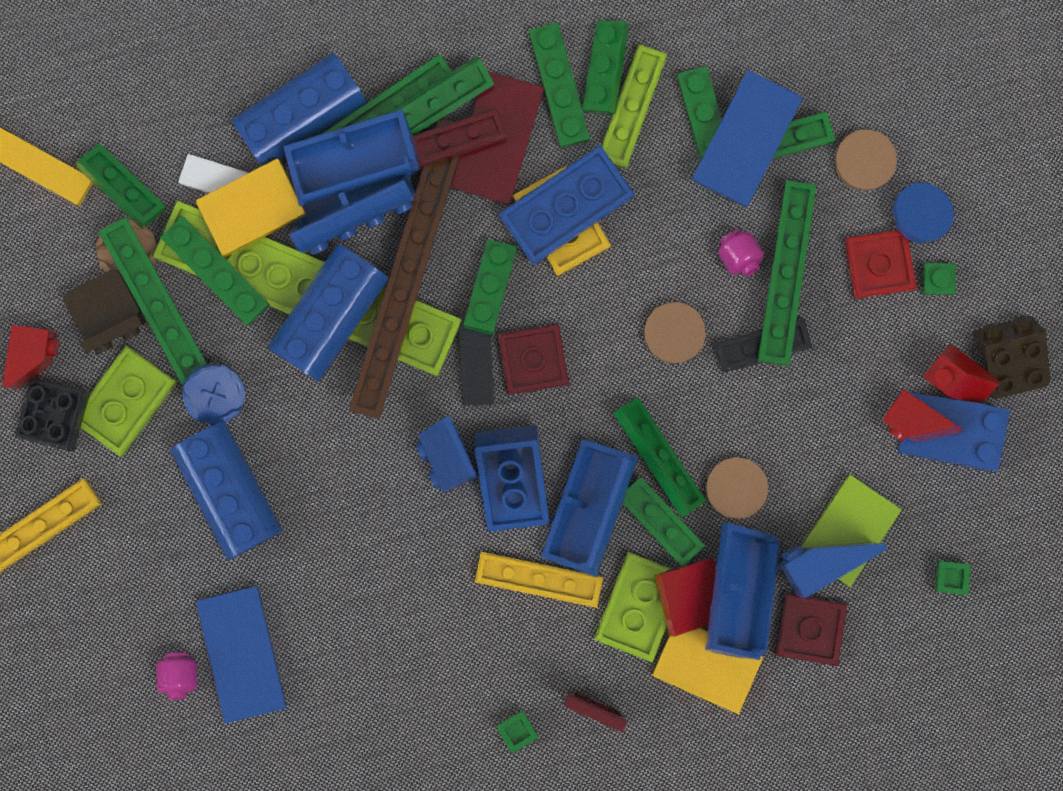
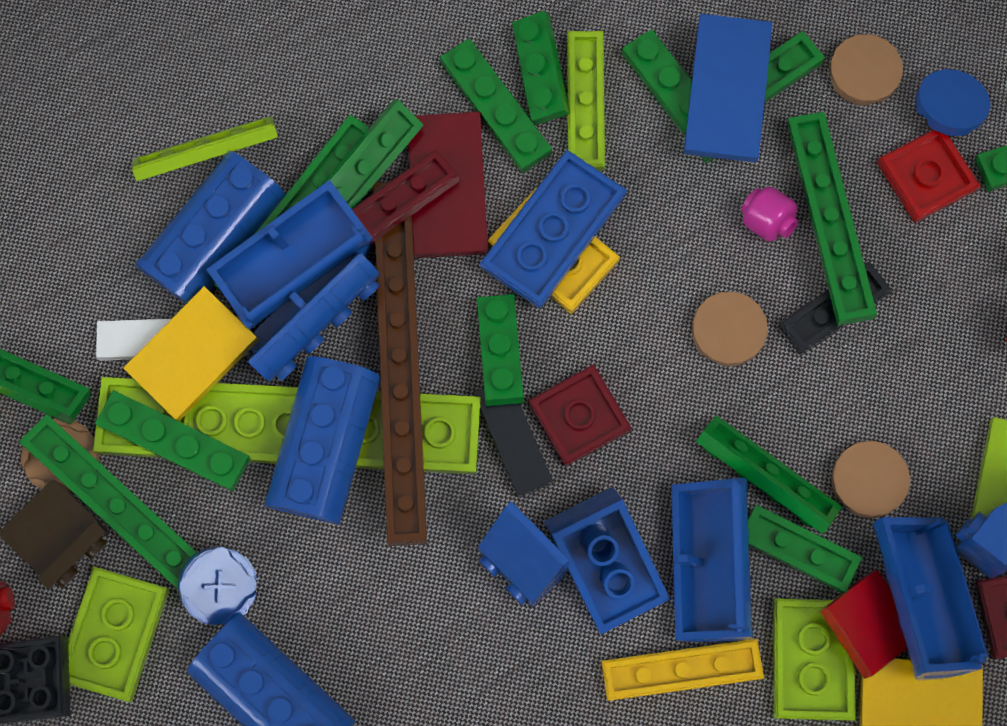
camera: 20 degrees left, 10 degrees down
(316, 41) = (204, 148): none -> lime tile

